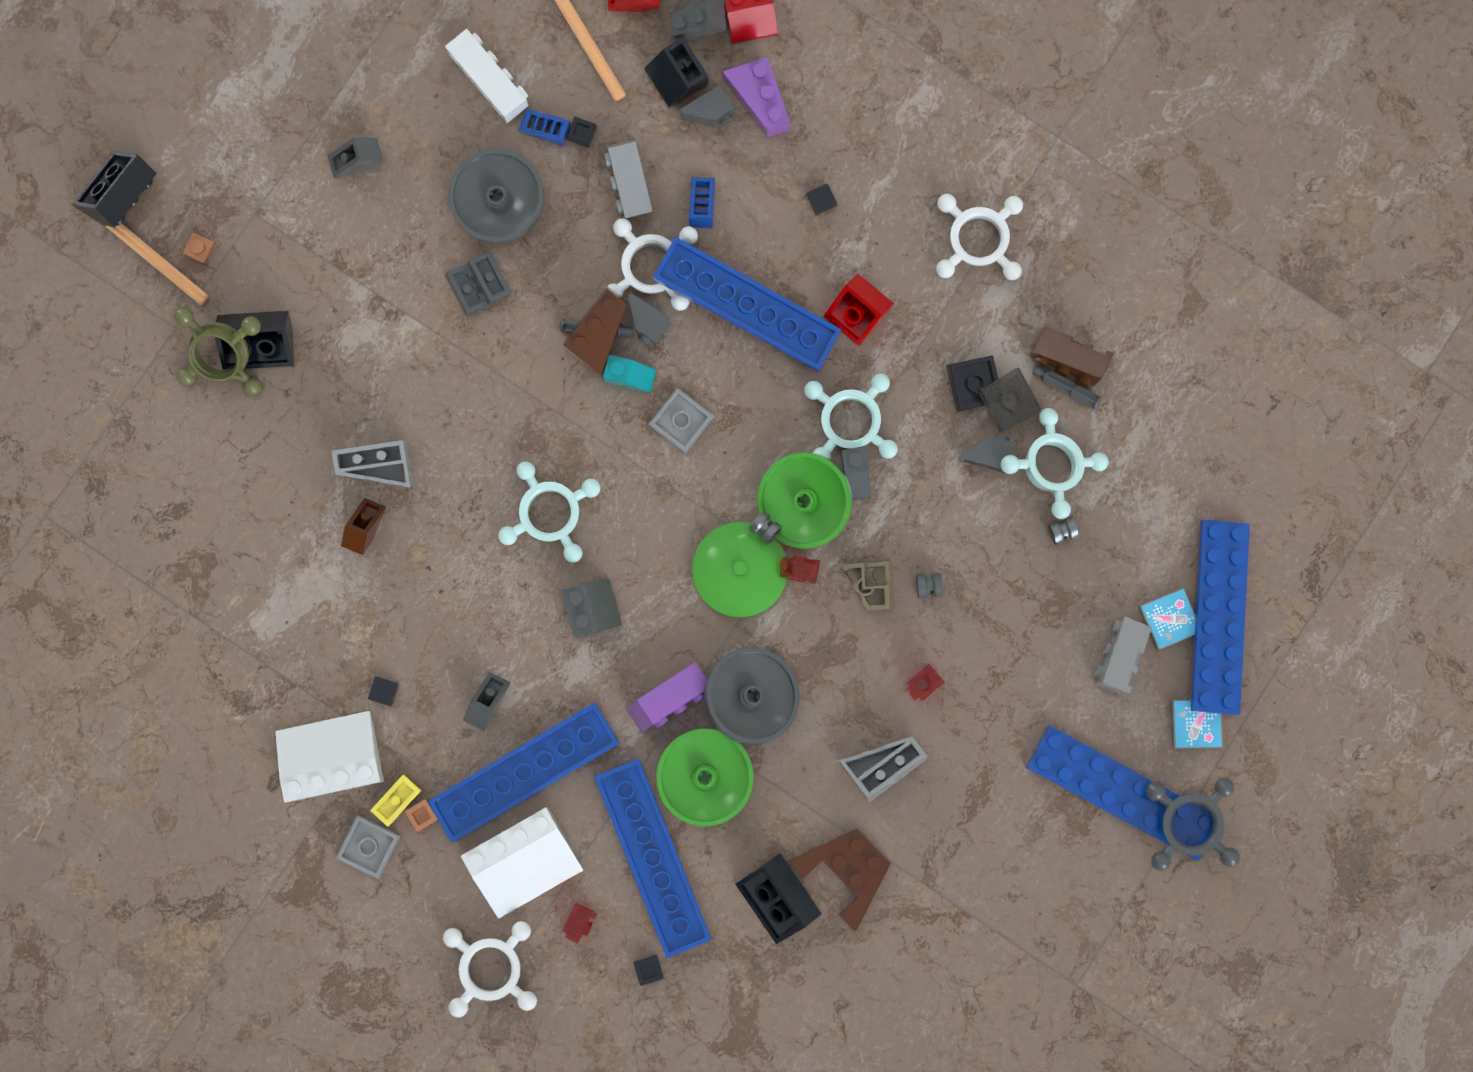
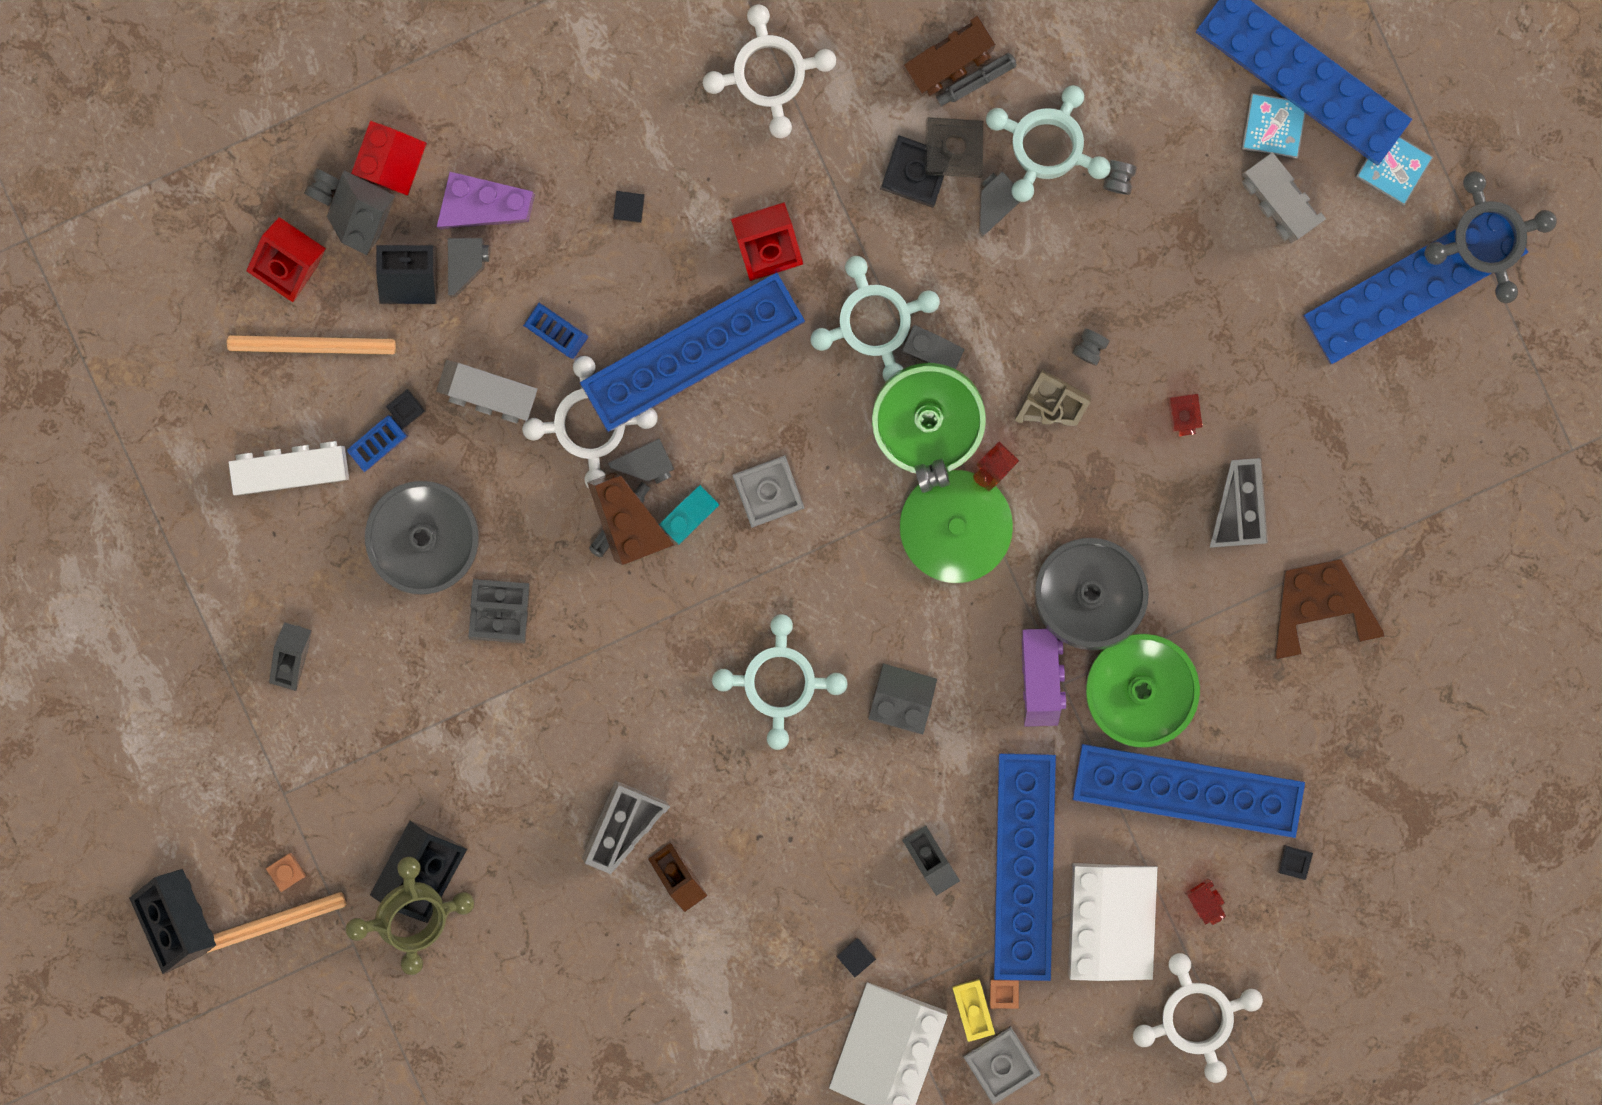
camera: 60 degrees left, 5 degrees up
(778, 899) = (1306, 691): black slope -> none

